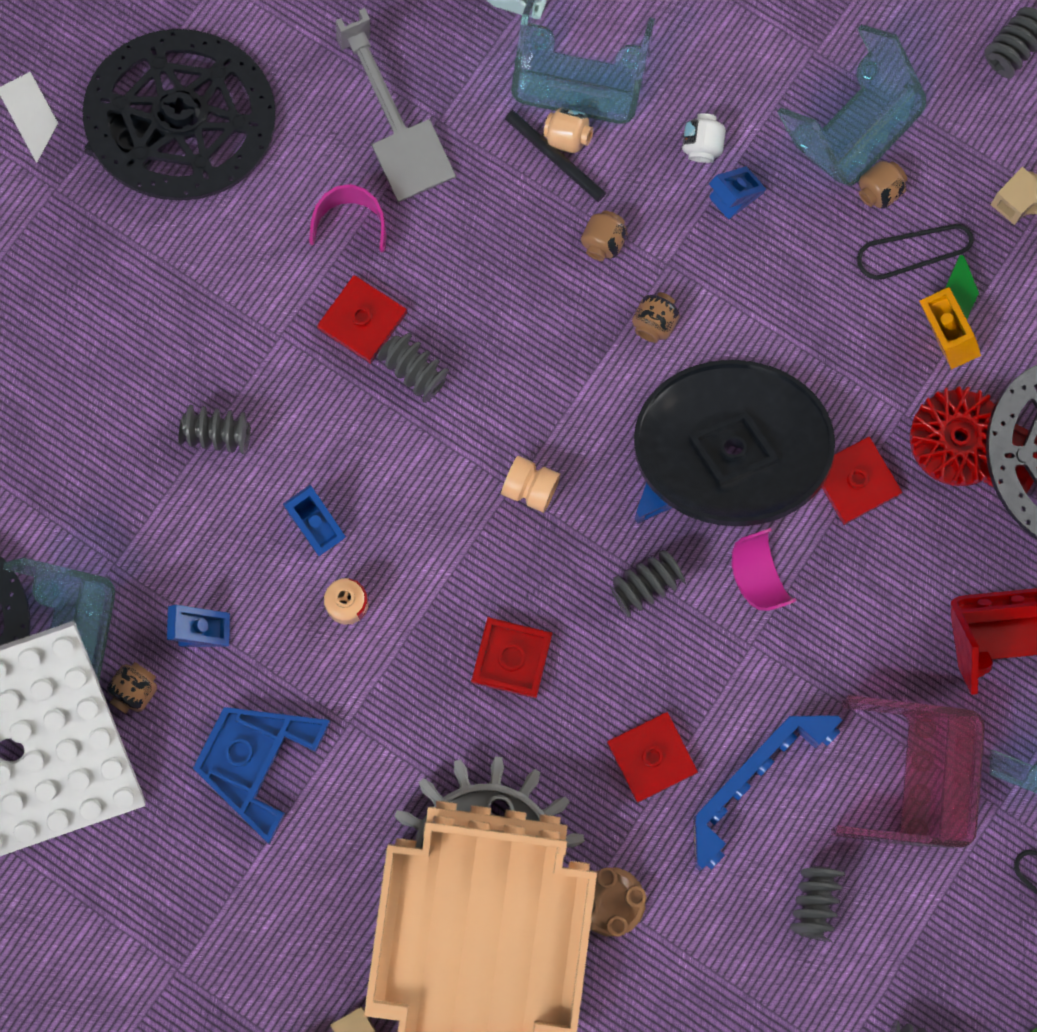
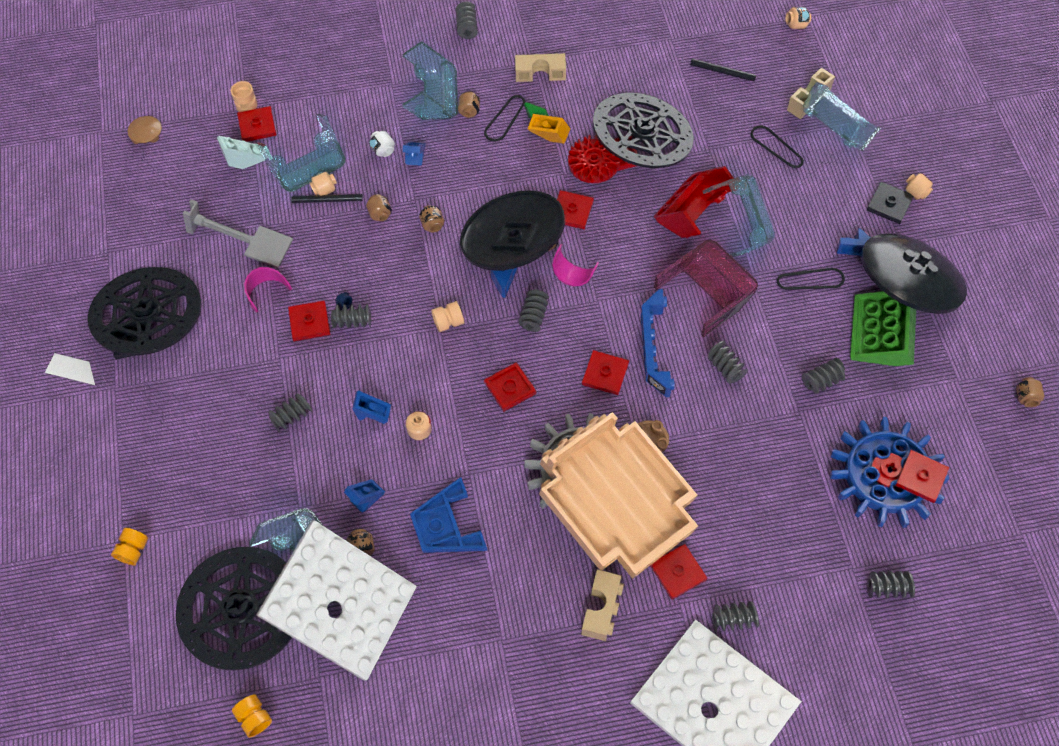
camera: 45 degrees left, 15 degrees down
(428, 332) = (342, 299): none -> dark blue plate

